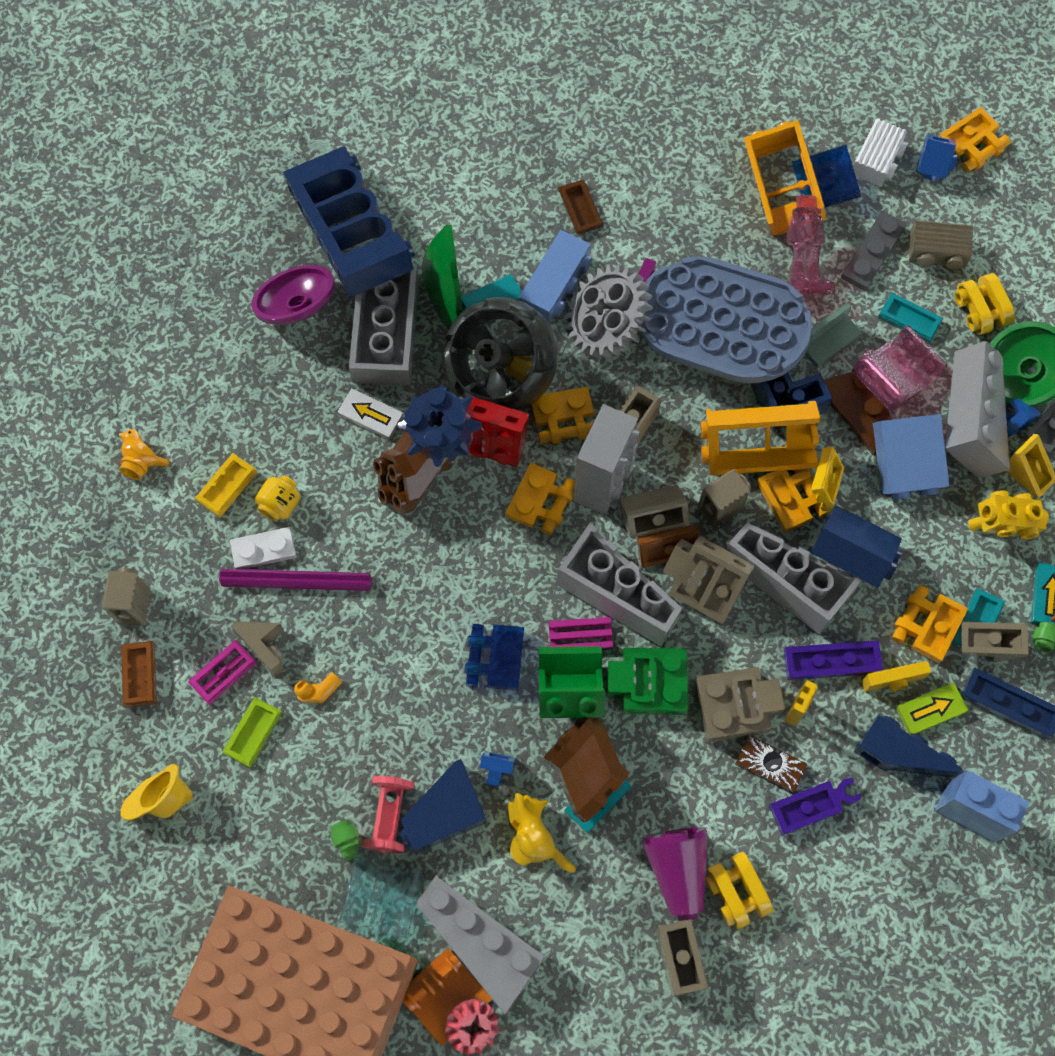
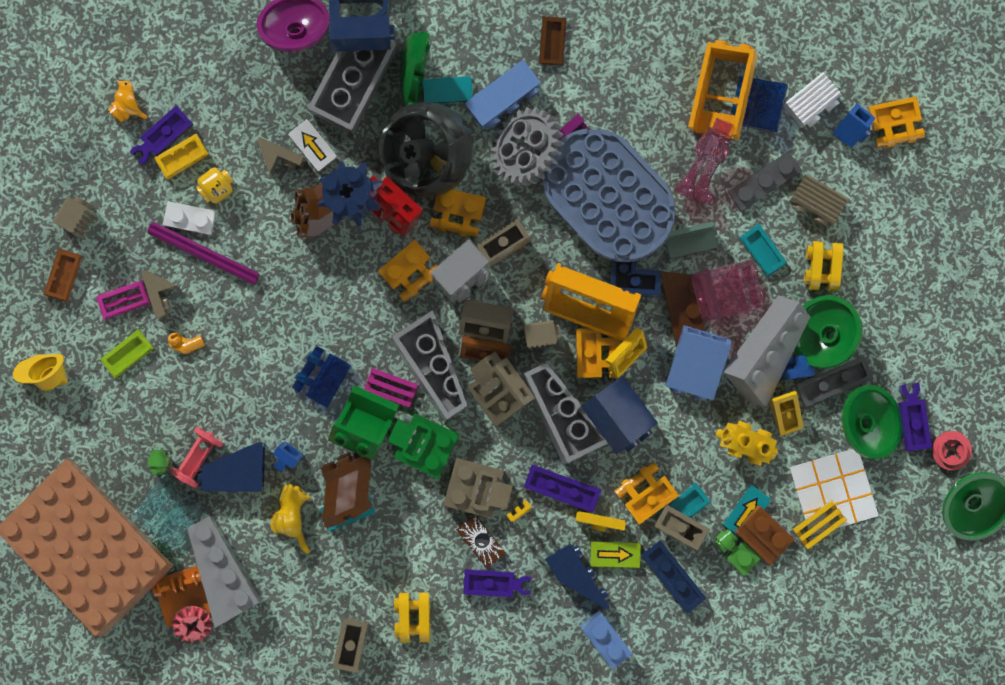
camera: 25 degrees right, 15 degrees up
(194, 470) = (163, 134): none -> dark purple plate
(330, 435) = (273, 153): none -> dark tan slope
(680, 869) = (379, 584): magenta cone -> none

